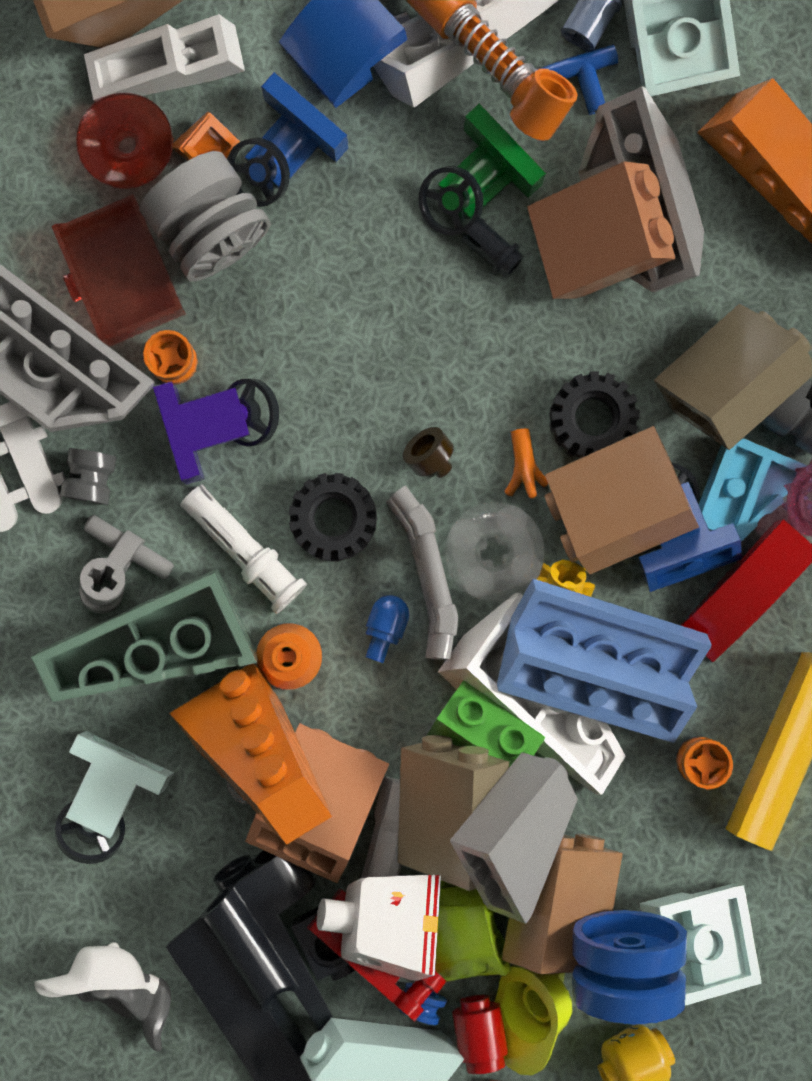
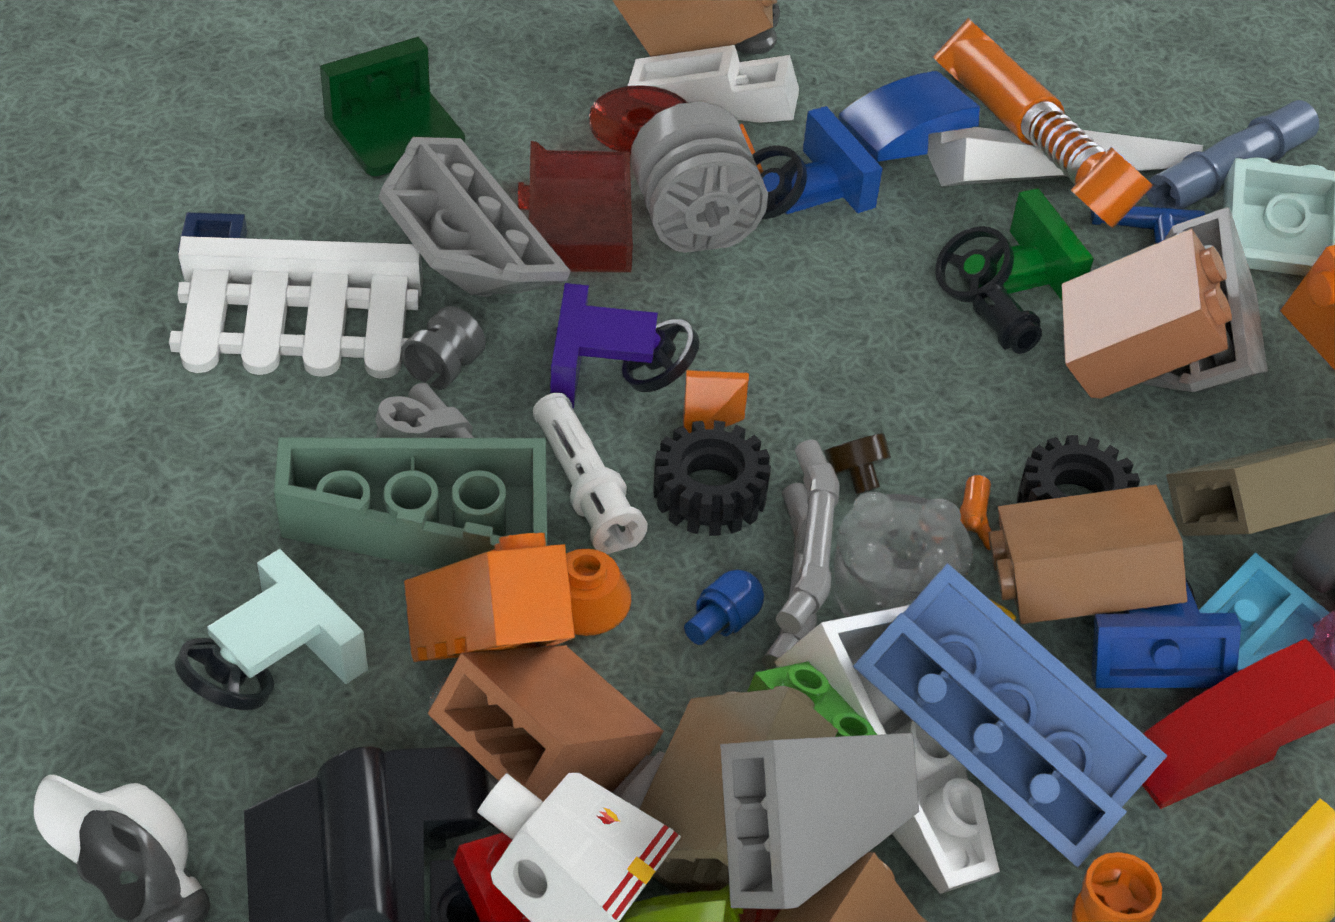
camera: 20 degrees right, 40 degrees down
(164, 351) = (603, 271): orange wheel -> none
(304, 445) = (714, 397): none -> orange slope

